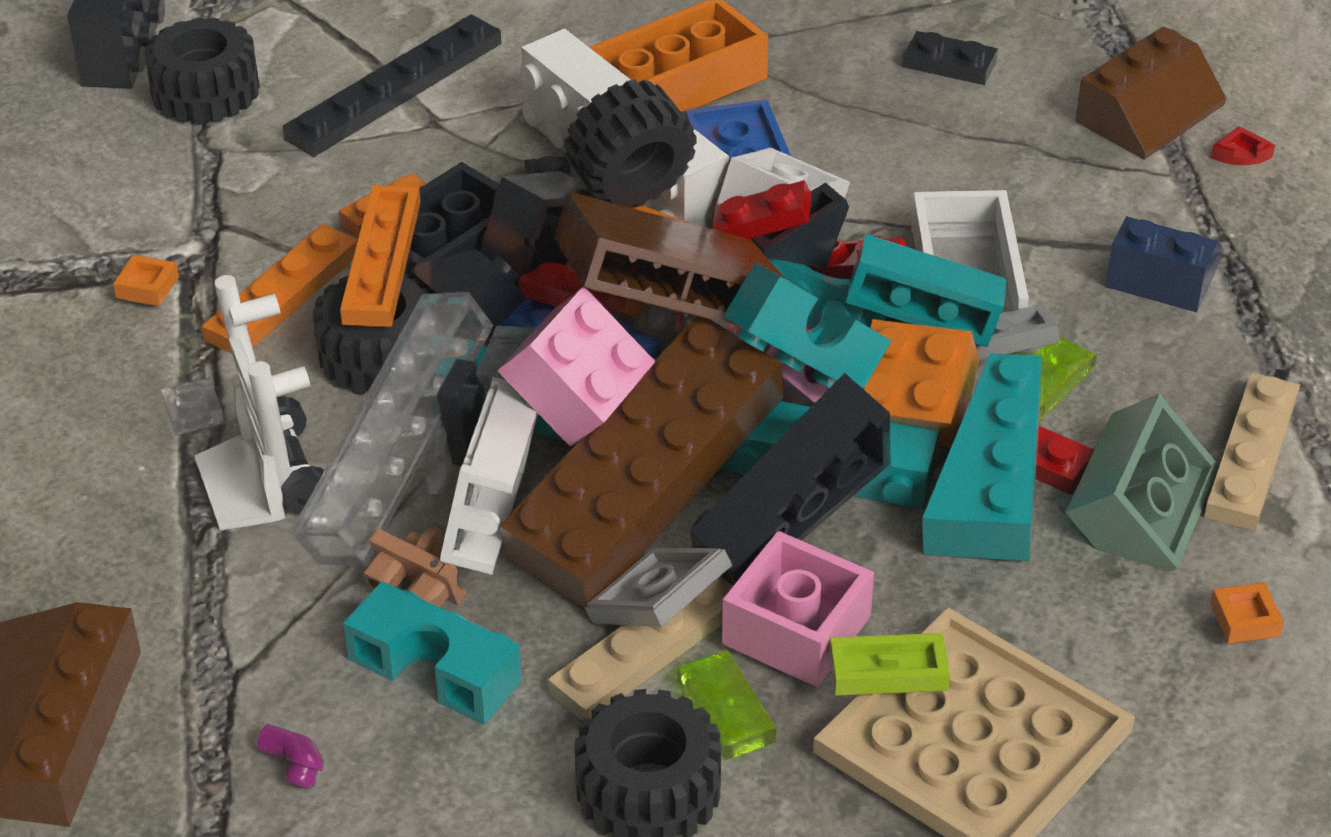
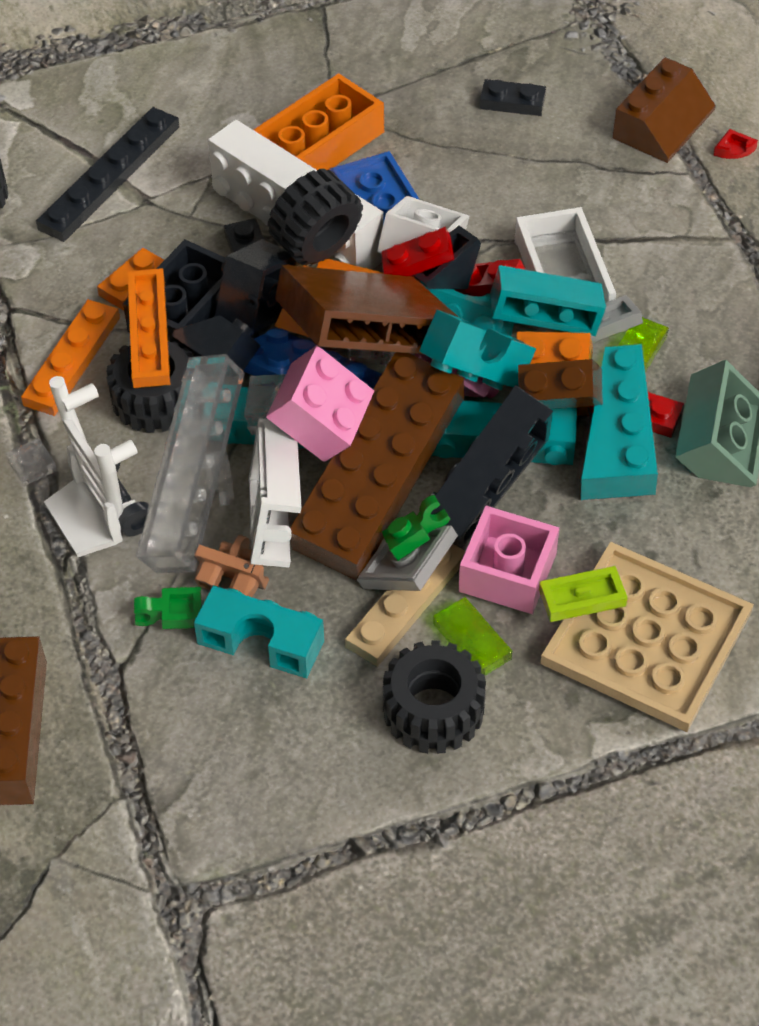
camera: 10 degrees left, 10 degrees up
(293, 747) = (183, 721): magenta arm -> none
(321, 608) = (176, 608): none -> green plate
(460, 406) = (237, 442): black plate -> none
(554, 285) = (283, 333): red plate -> none
(666, 551) = (412, 531): none -> green plate
(919, 386) = (563, 383): none -> reddish brown brick
(1162, 263) = (700, 249): dark blue slope -> none

